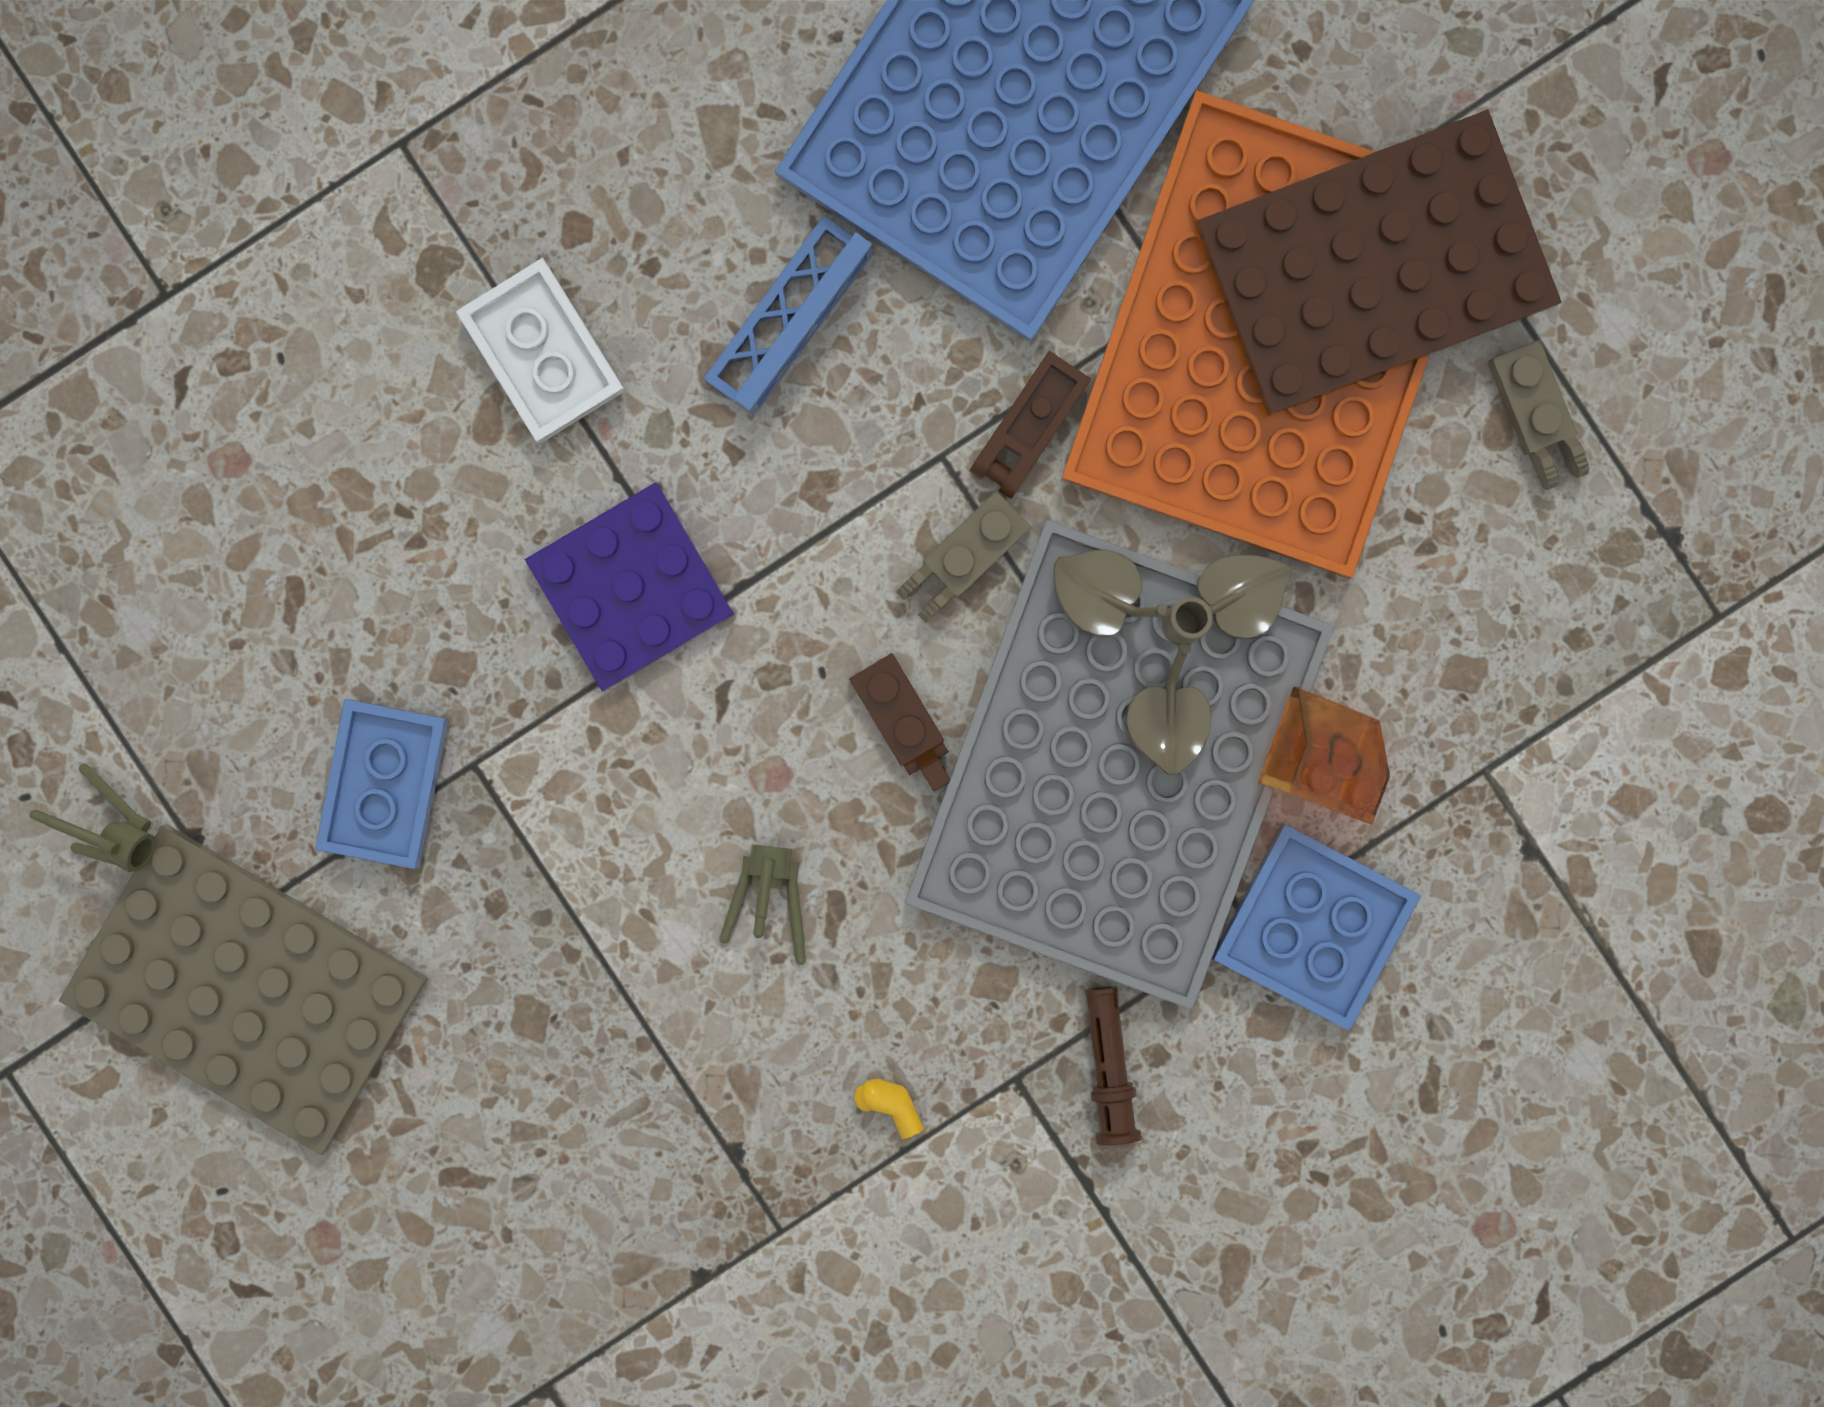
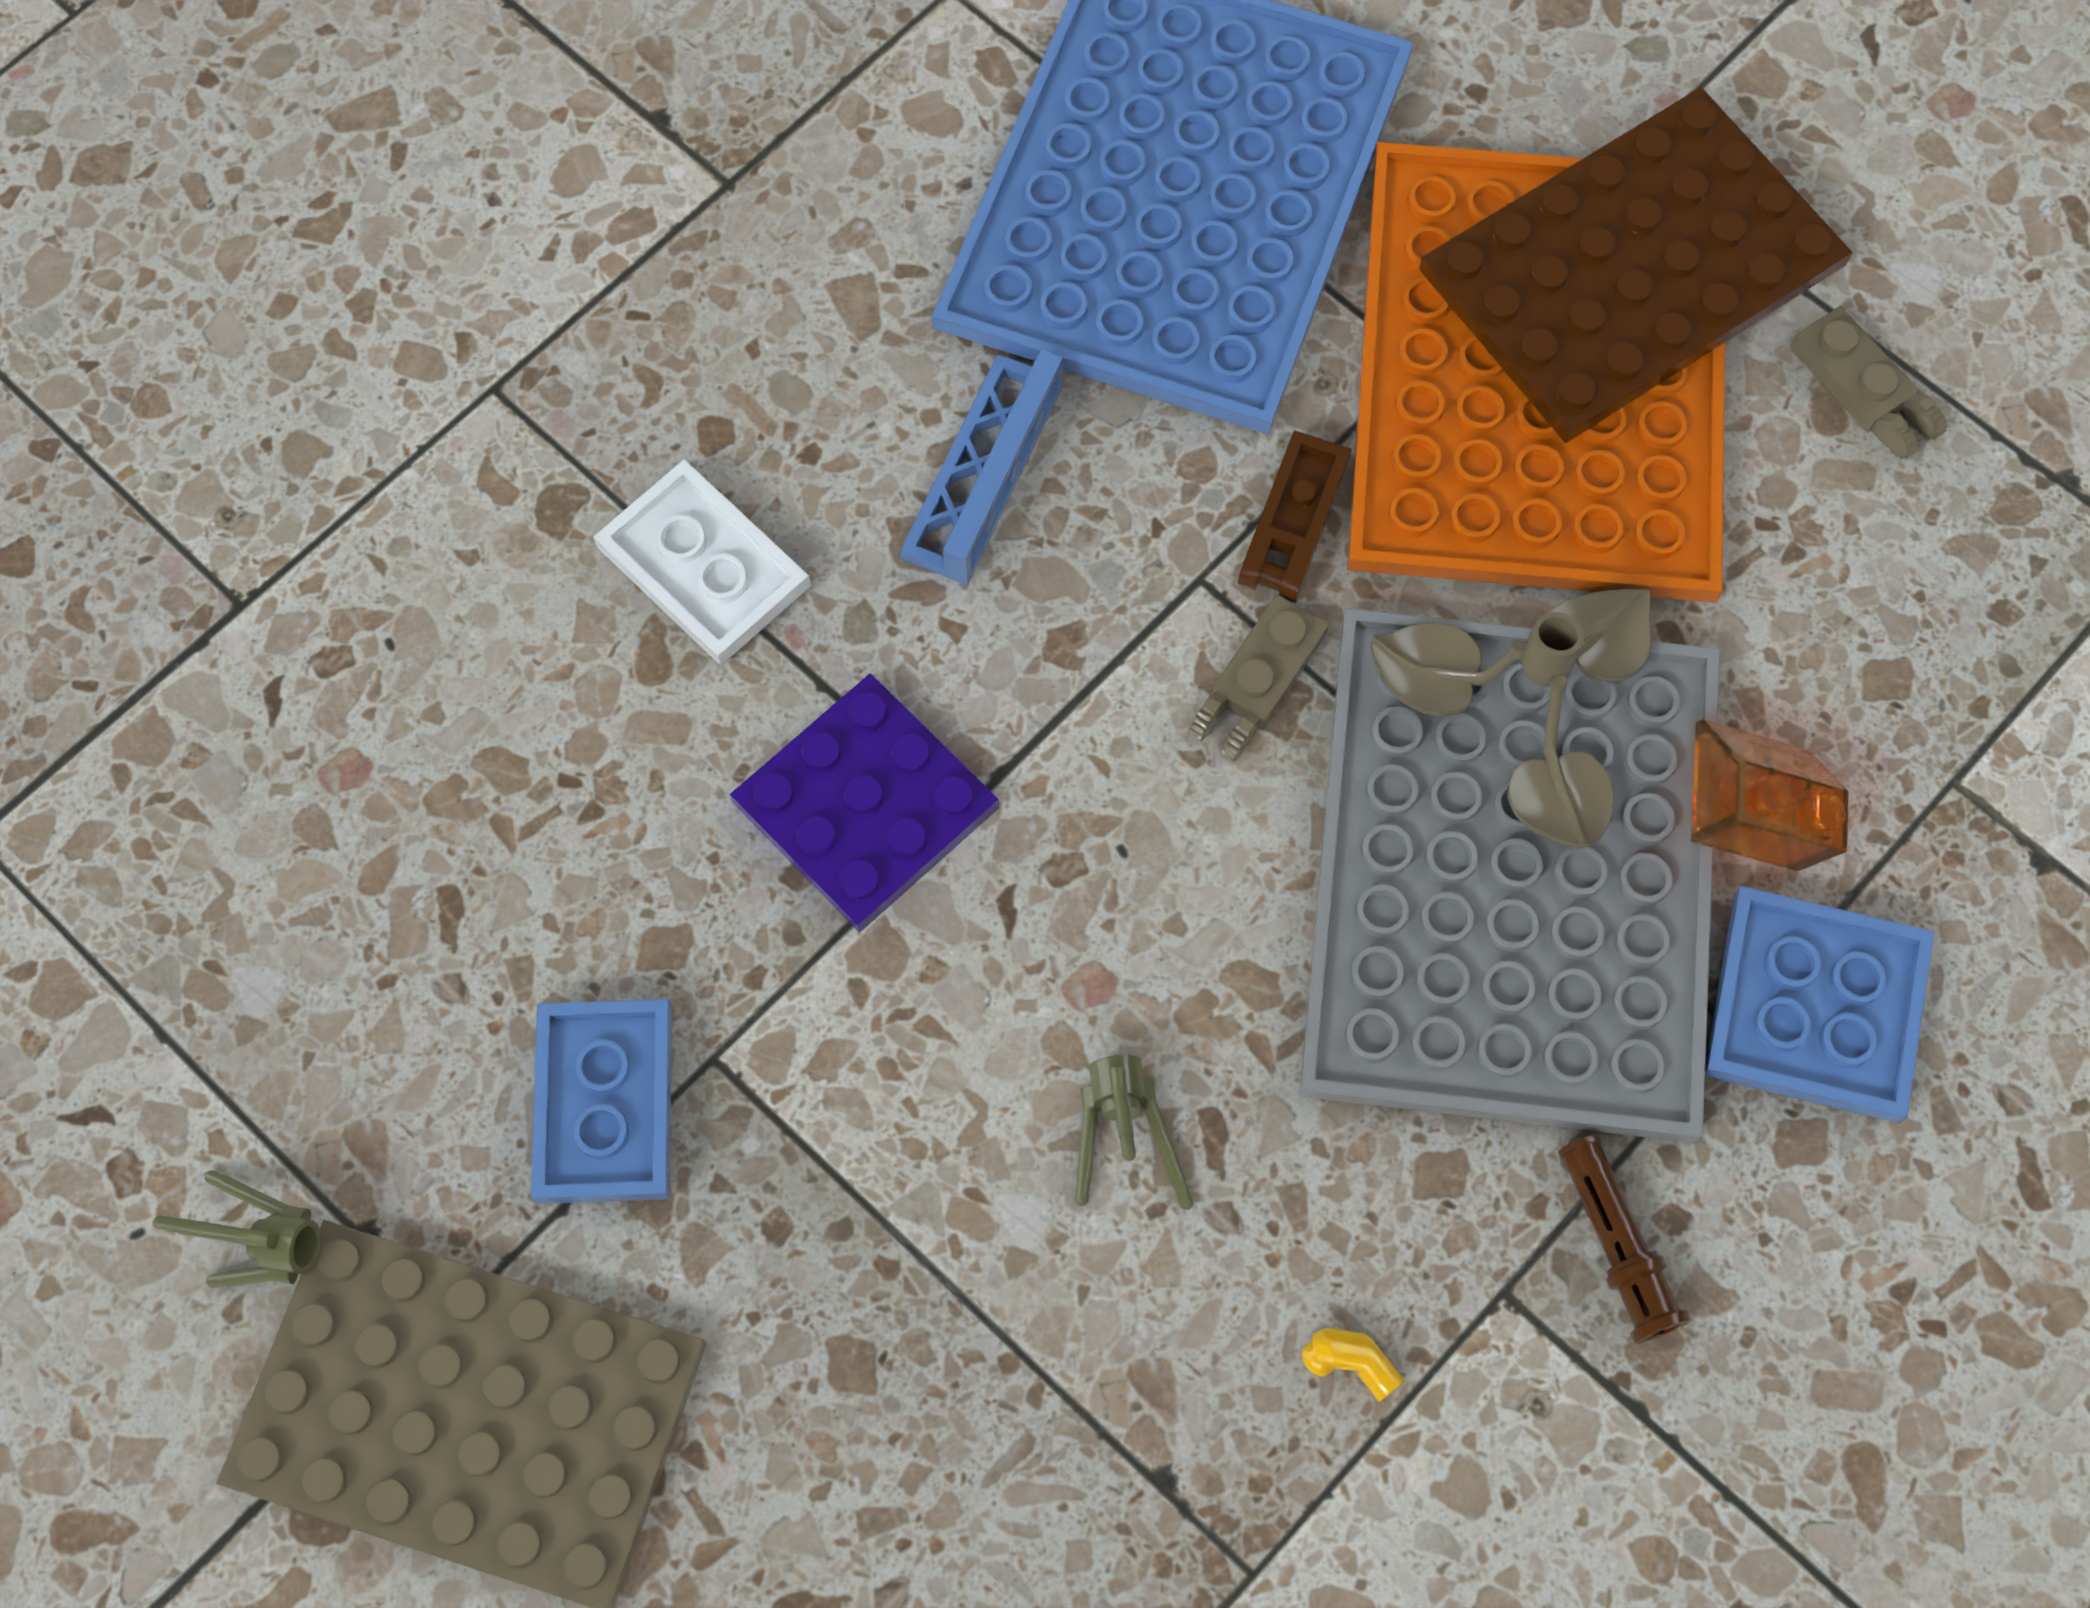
camera: 10 degrees left, 20 degrees down
(902, 719) = (1237, 879): reddish brown hinge -> none

